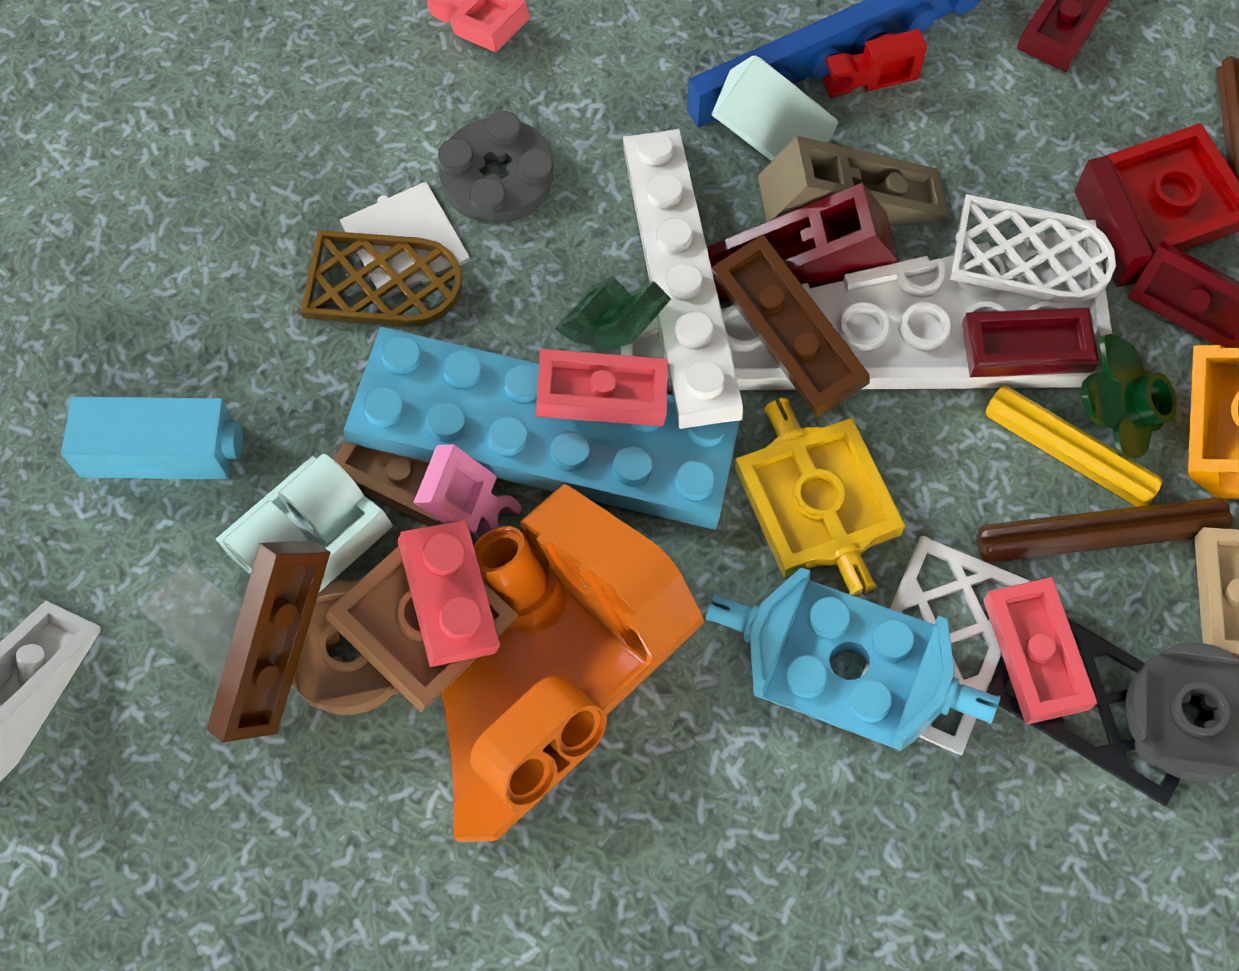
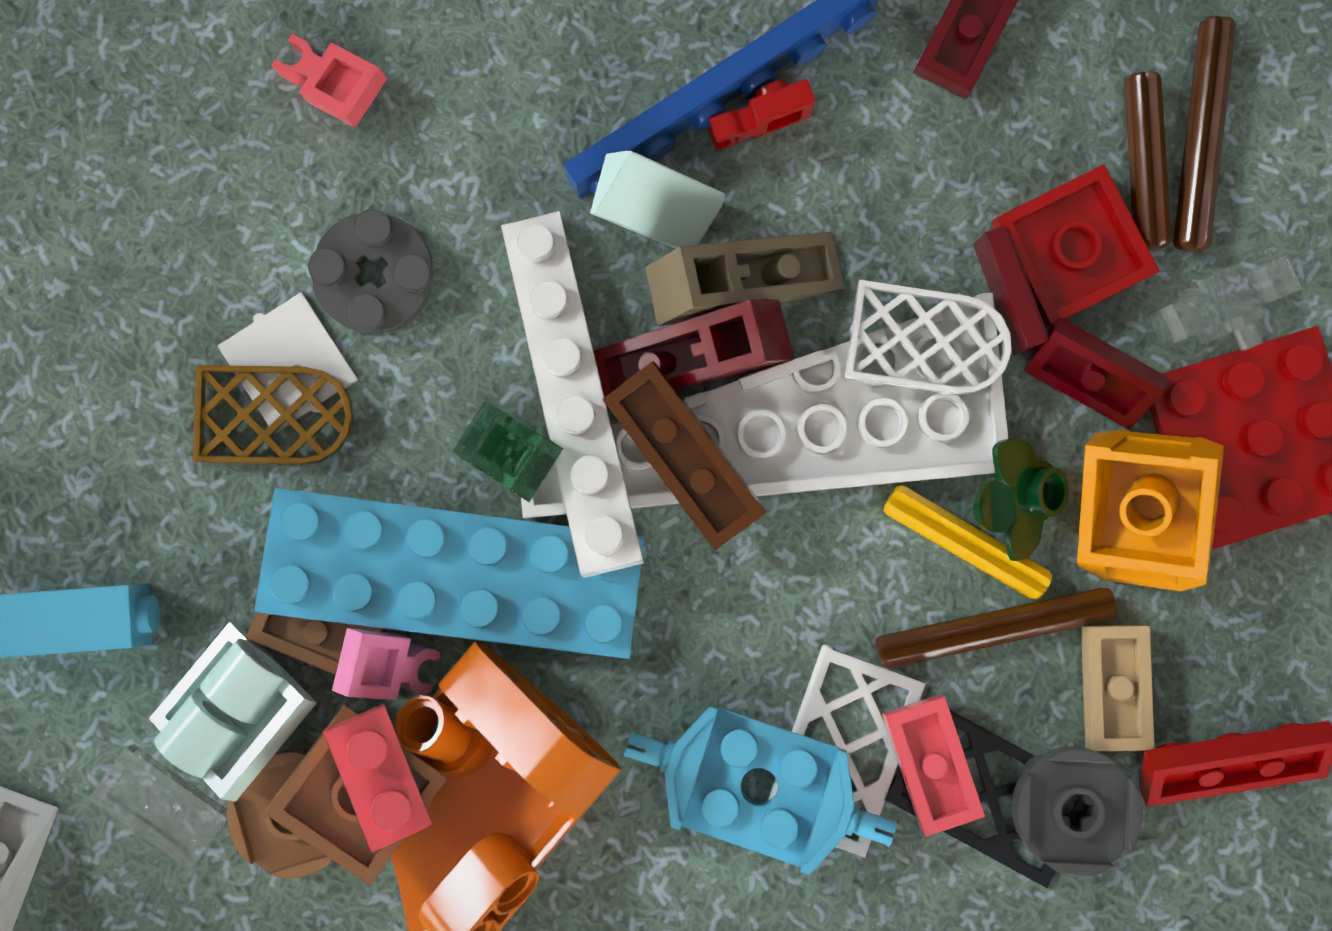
camera: 10 degrees left, 20 degrees up
(268, 639) = (214, 839): reddish brown plate -> none
(602, 387) = (502, 548): coral plate -> none
(819, 497) = (724, 621): yellow plate -> none
(1030, 342) = (925, 446): dark red tile -> none

